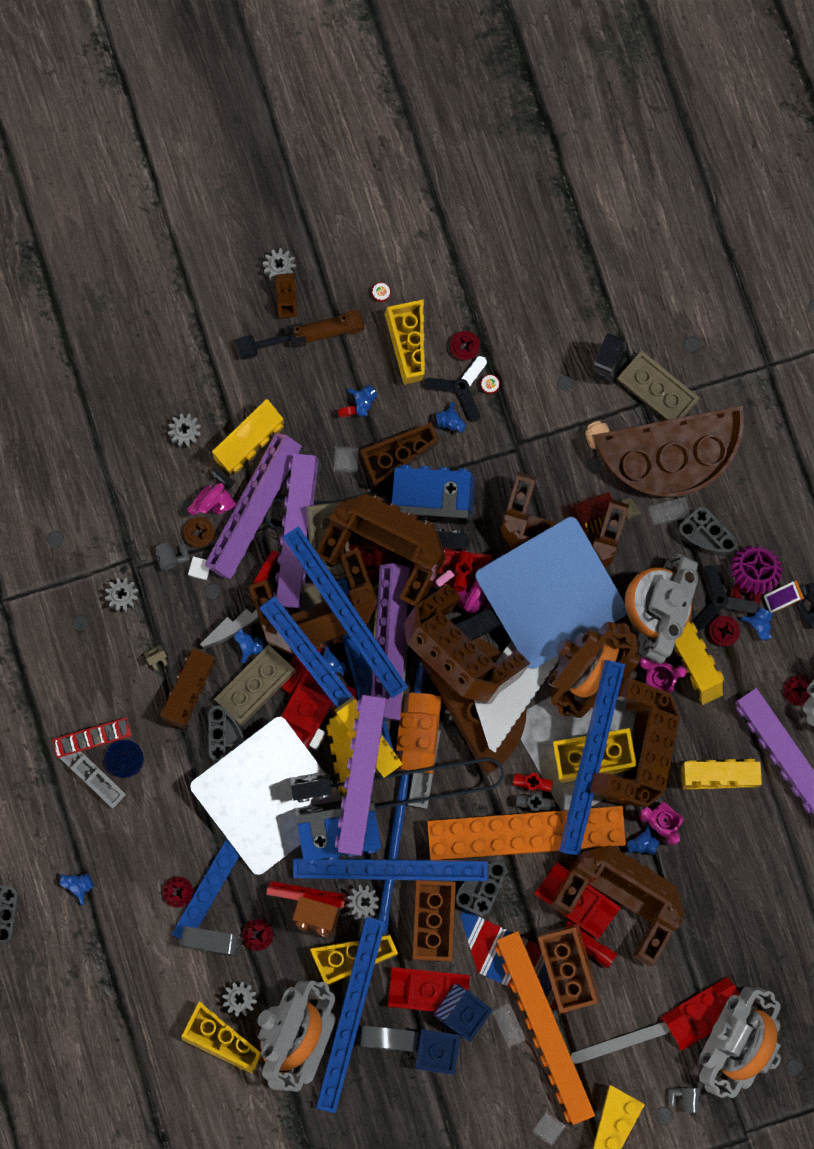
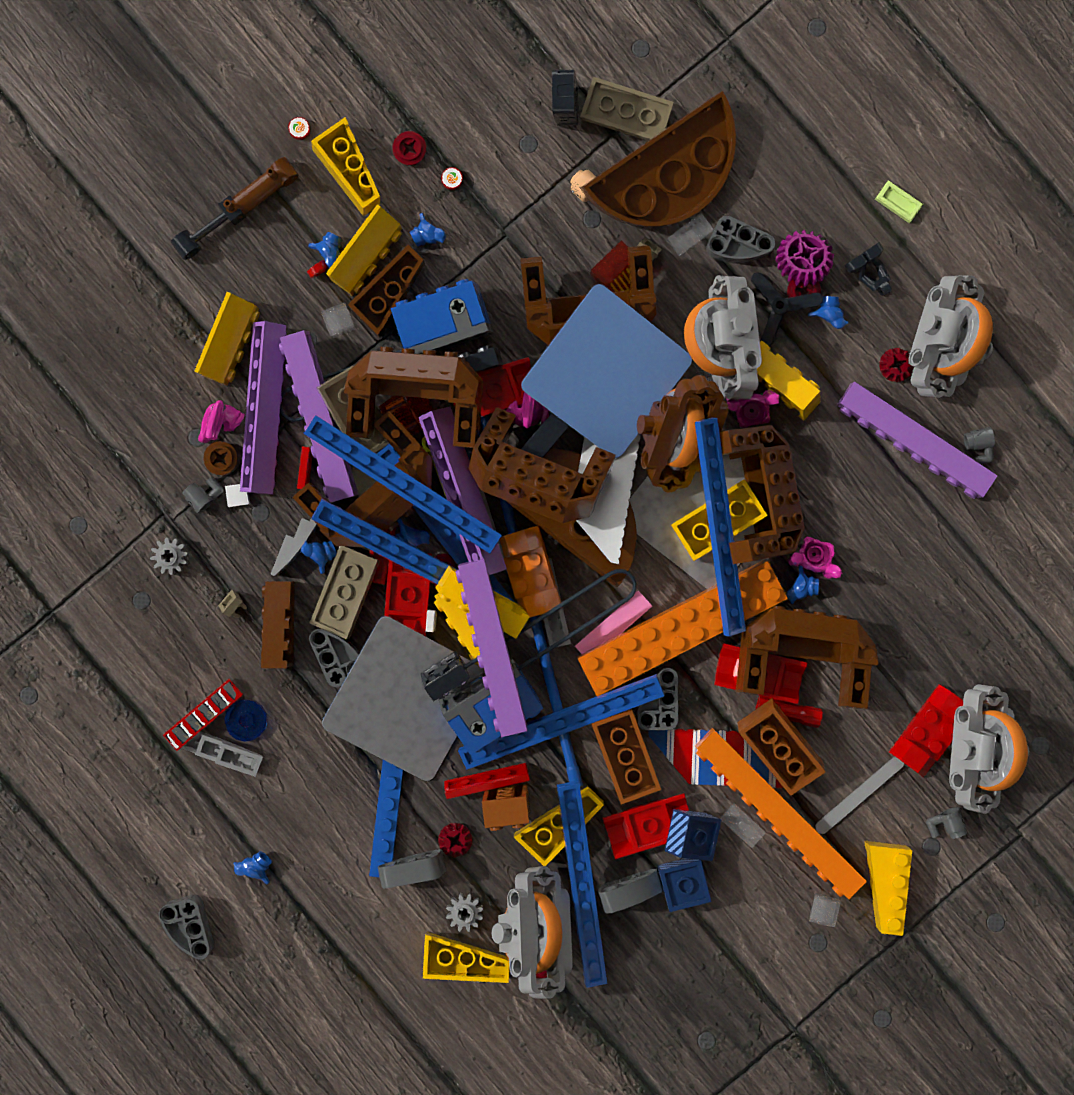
camera: 20 degrees left, 10 degrees up
(176, 901) = (354, 821): dark red gear -> none
(177, 430) = (152, 358): light grey gear -> none
(222, 477) = (220, 392): black pin -> none
(277, 259) = (177, 137): light grey gear -> none
(286, 295) = (202, 172): reddish brown brick -> none
(355, 902) = (538, 769): light grey gear -> none
(392, 413) = (365, 250): none -> yellow slope
(443, 579) = (487, 409): bright pink tile -> none
(464, 394) = (430, 200): black piece -> none
(464, 565) = (507, 396): red axle -> none
(473, 807) = (615, 623): none -> bright pink tile
(524, 802) = (688, 590): dark grey axle -> none
(543, 784) = (654, 575): red axle -> none
(720, 623) = (803, 328): dark red gear -> none
(721, 774) = (853, 485): yellow wedge -> none
(783, 597) = (844, 275): tile -> none

